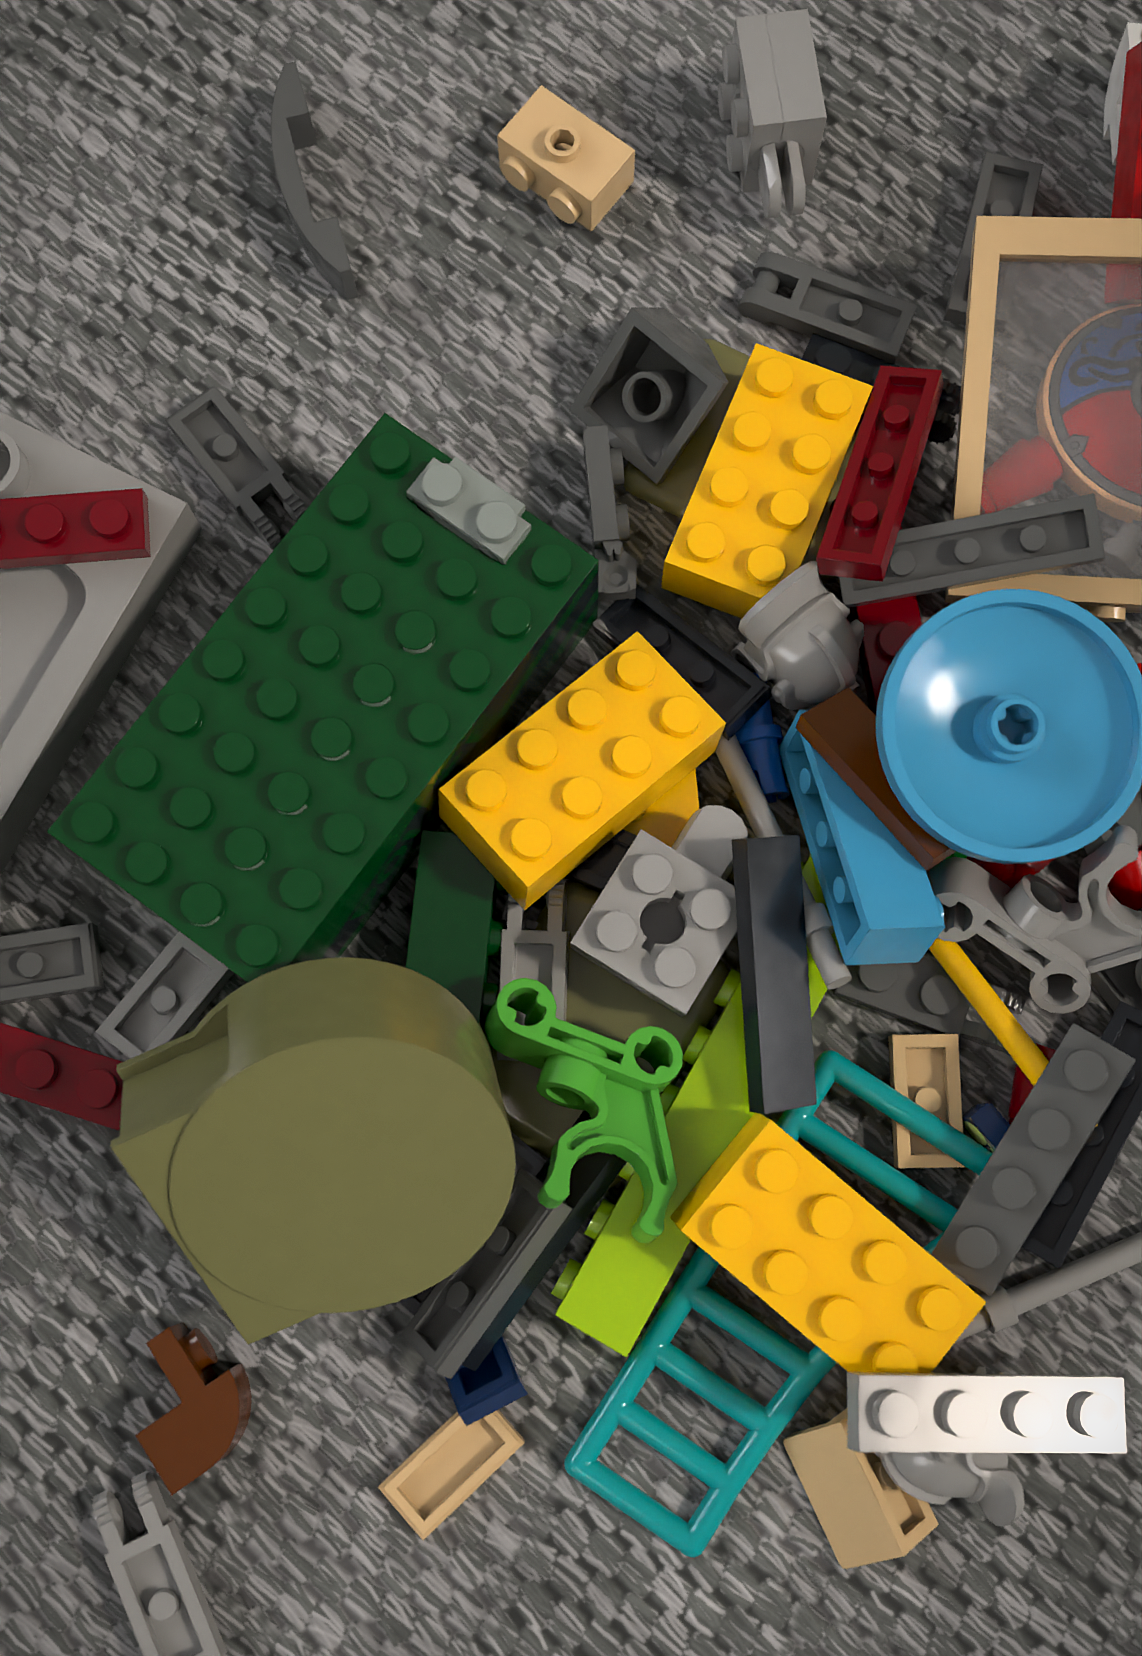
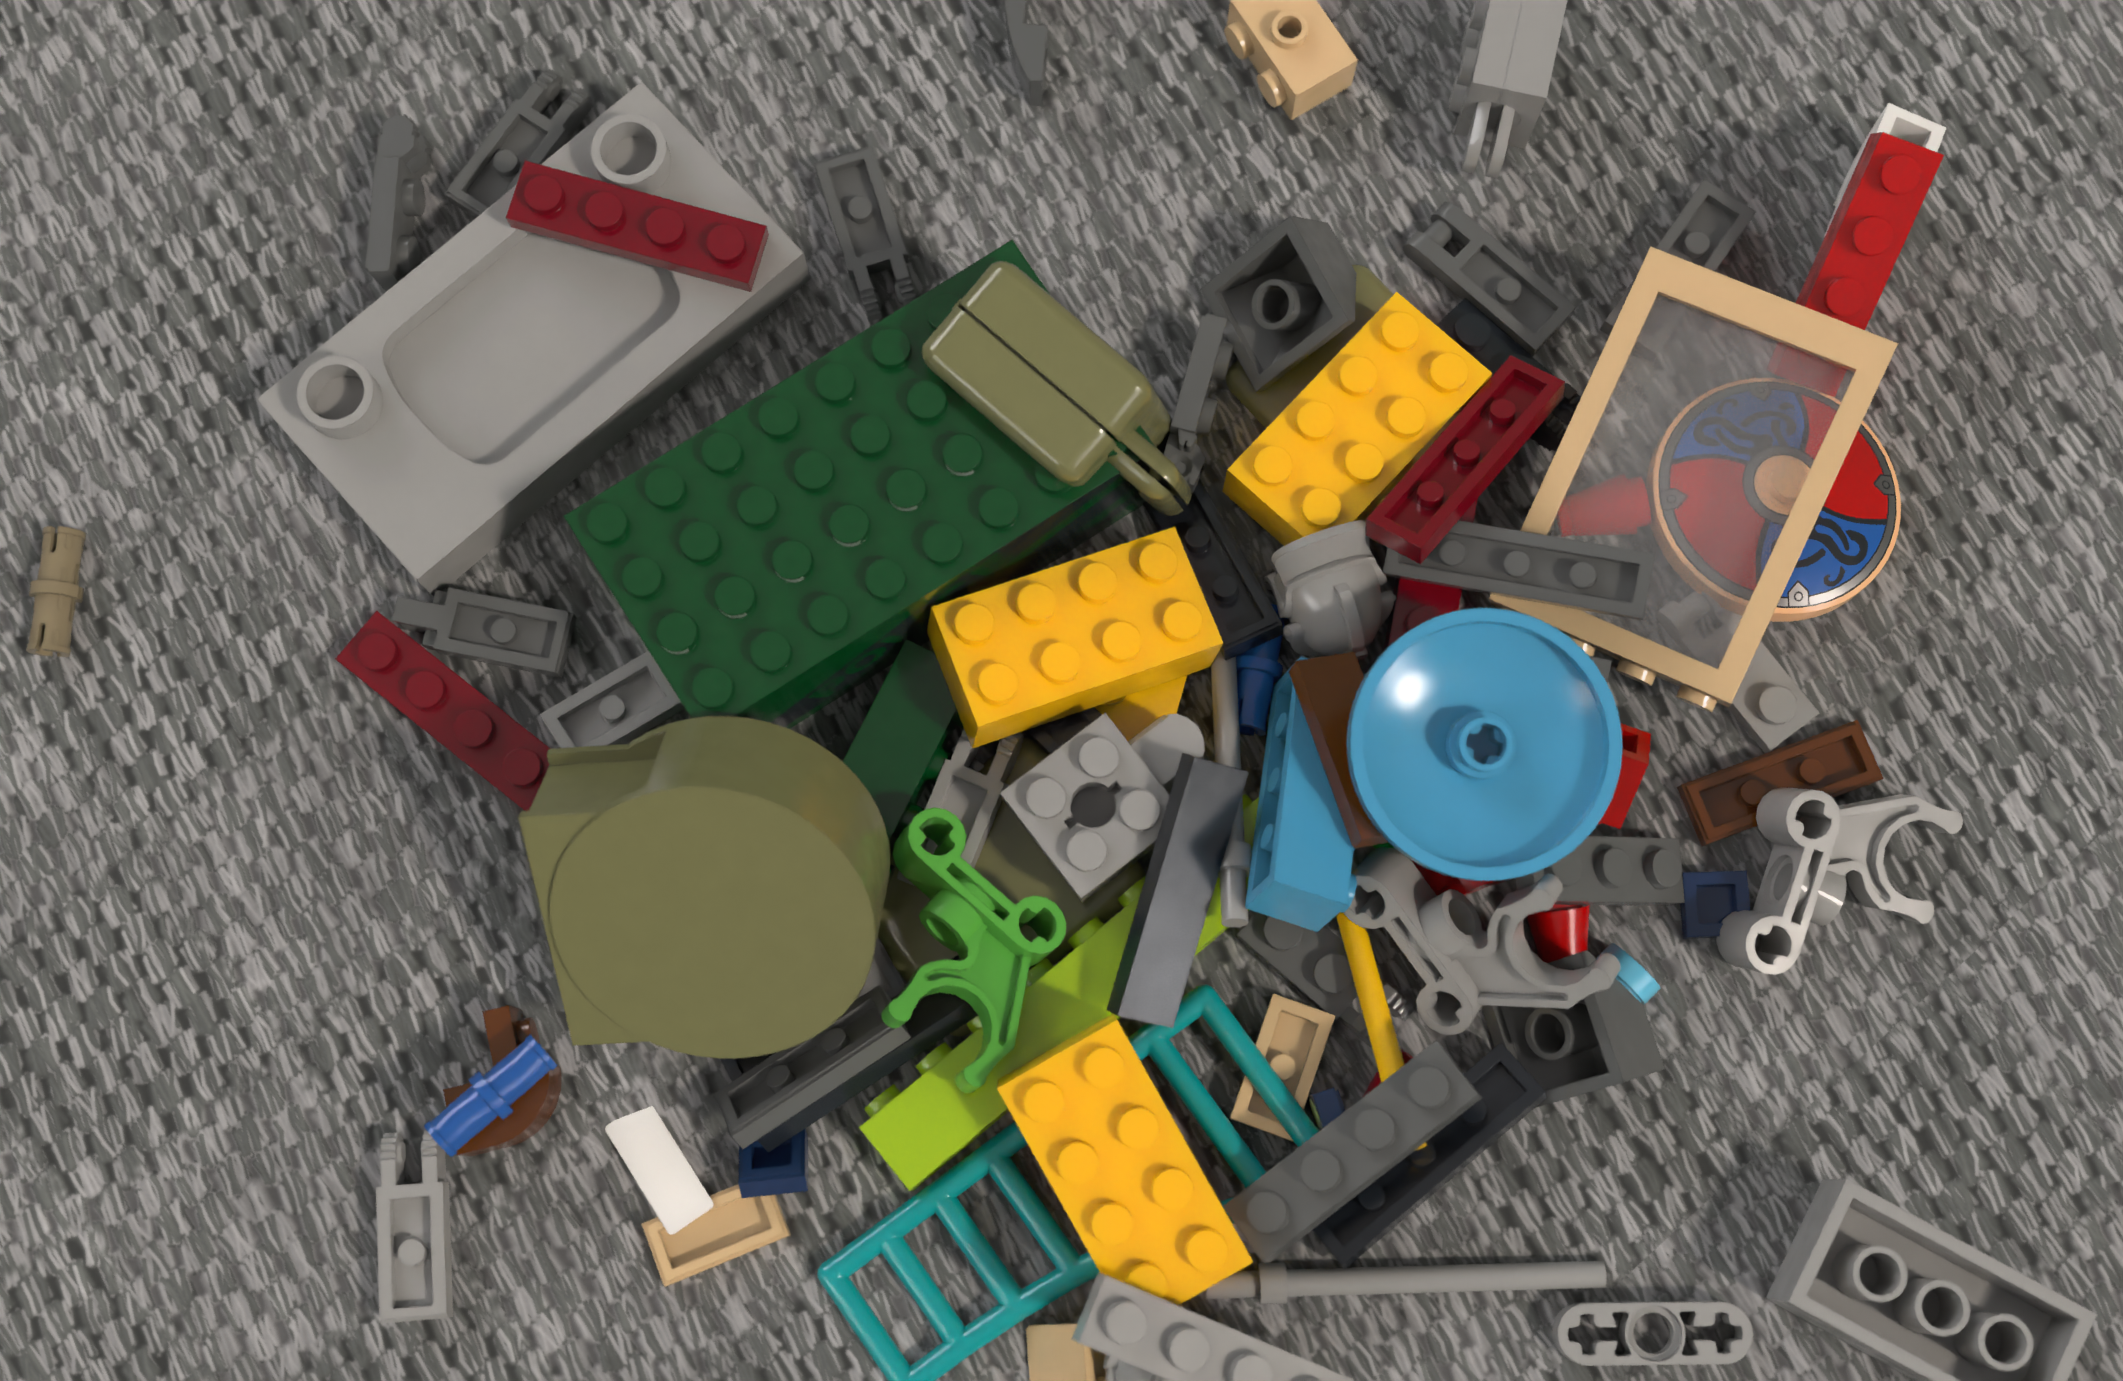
camera: 20 degrees right, 0 degrees up
(184, 1426) = (490, 1096): none -> blue pin
(375, 1426) = (659, 1168): none -> white sticker
(476, 533) = (1054, 385): none -> olive piece

